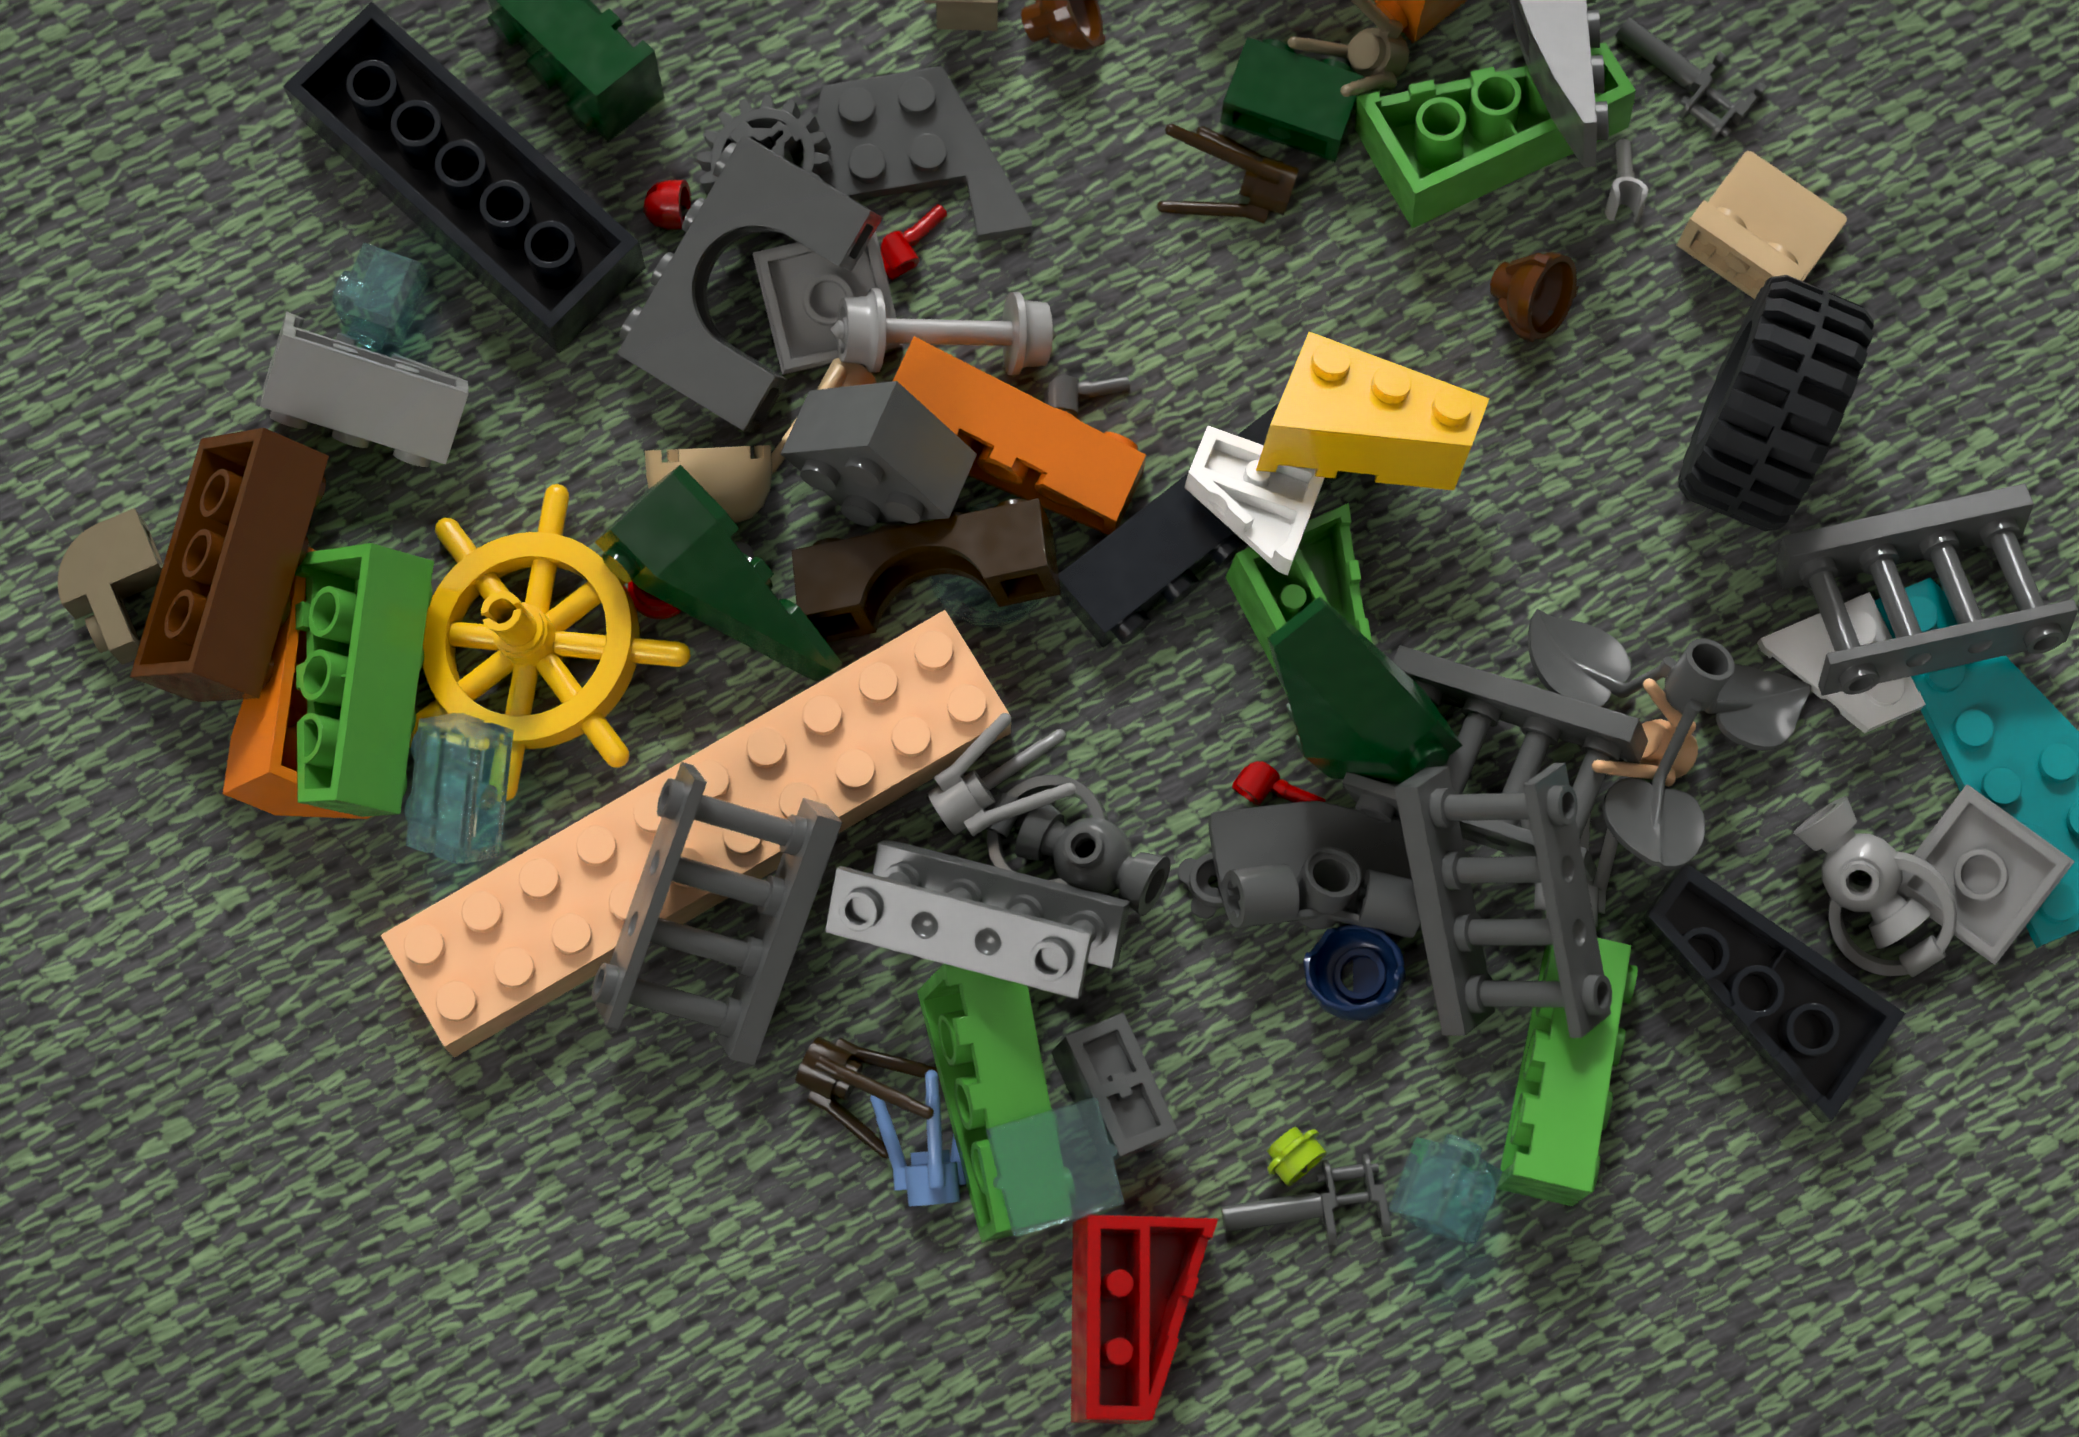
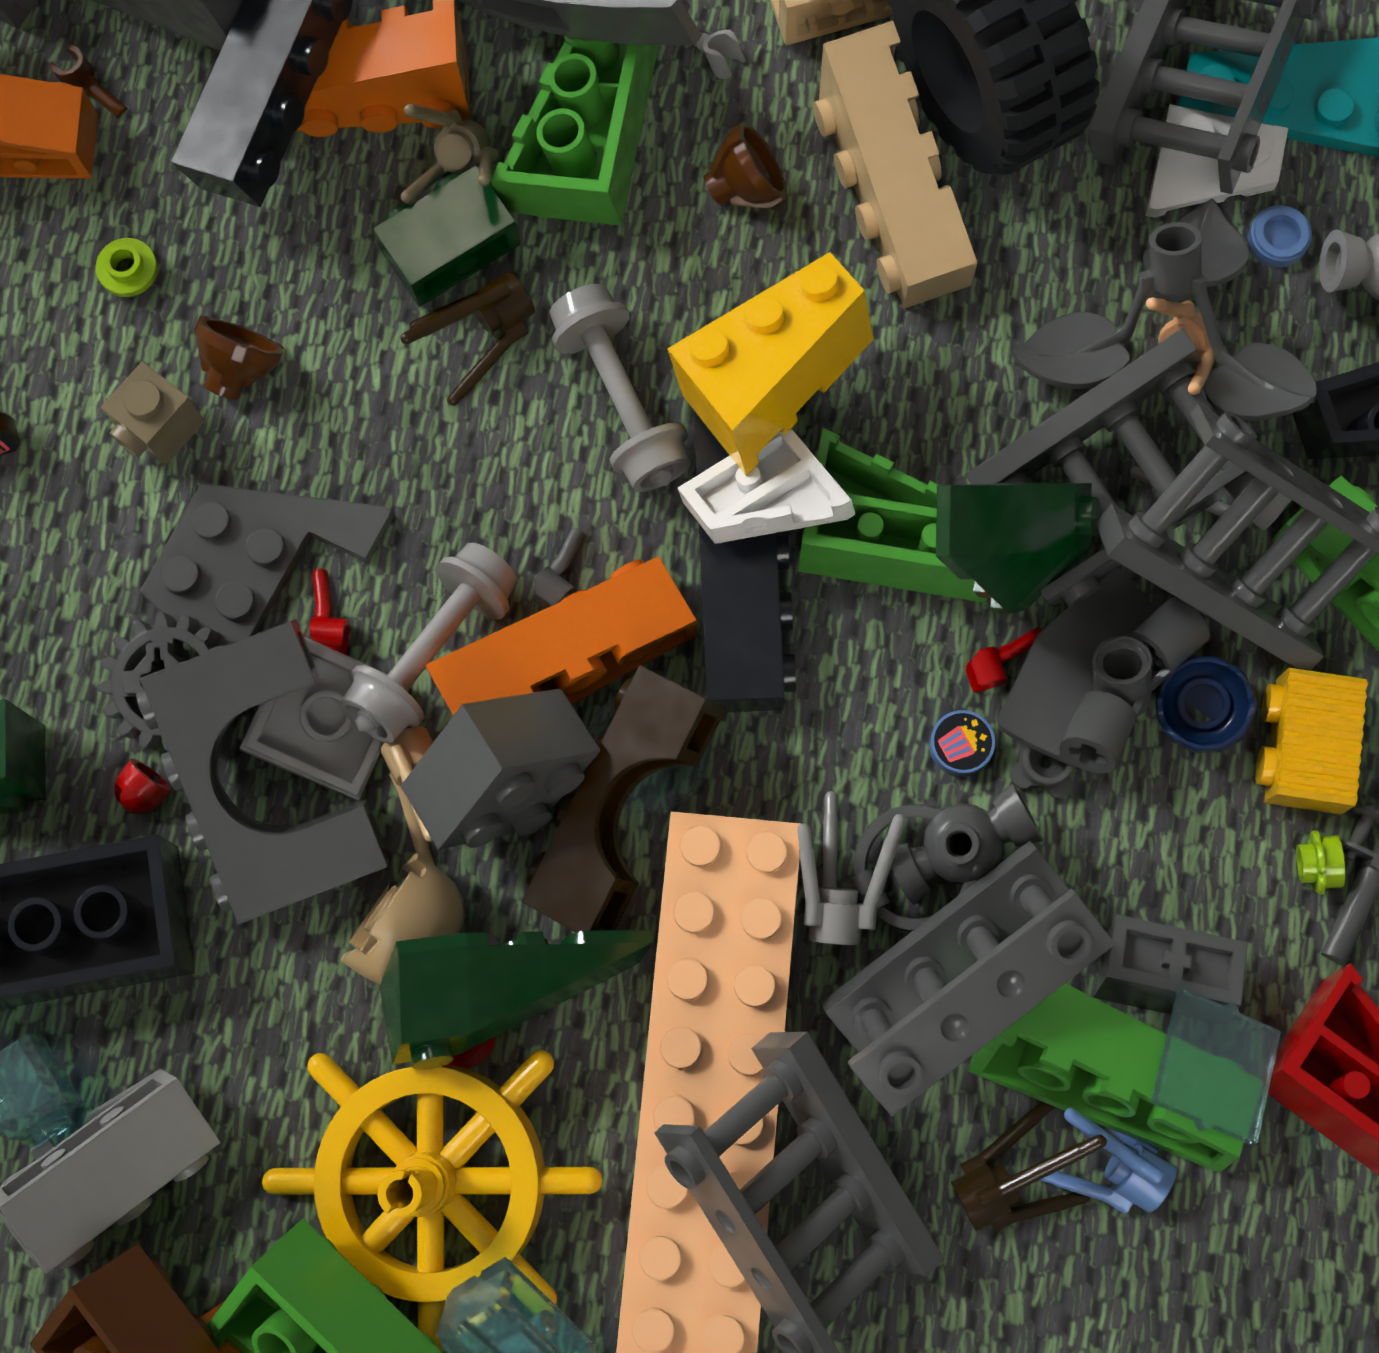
camera: 45 degrees left, 0 degrees up
(1180, 805) = (962, 743): none -> tile
(1230, 391) = (588, 320): none -> light grey piece
(1391, 1079) = (1312, 740): none -> yellow brick
(1624, 406) = (892, 167): none -> tan wedge
(1823, 764) = (1279, 236): none -> medium blue tile

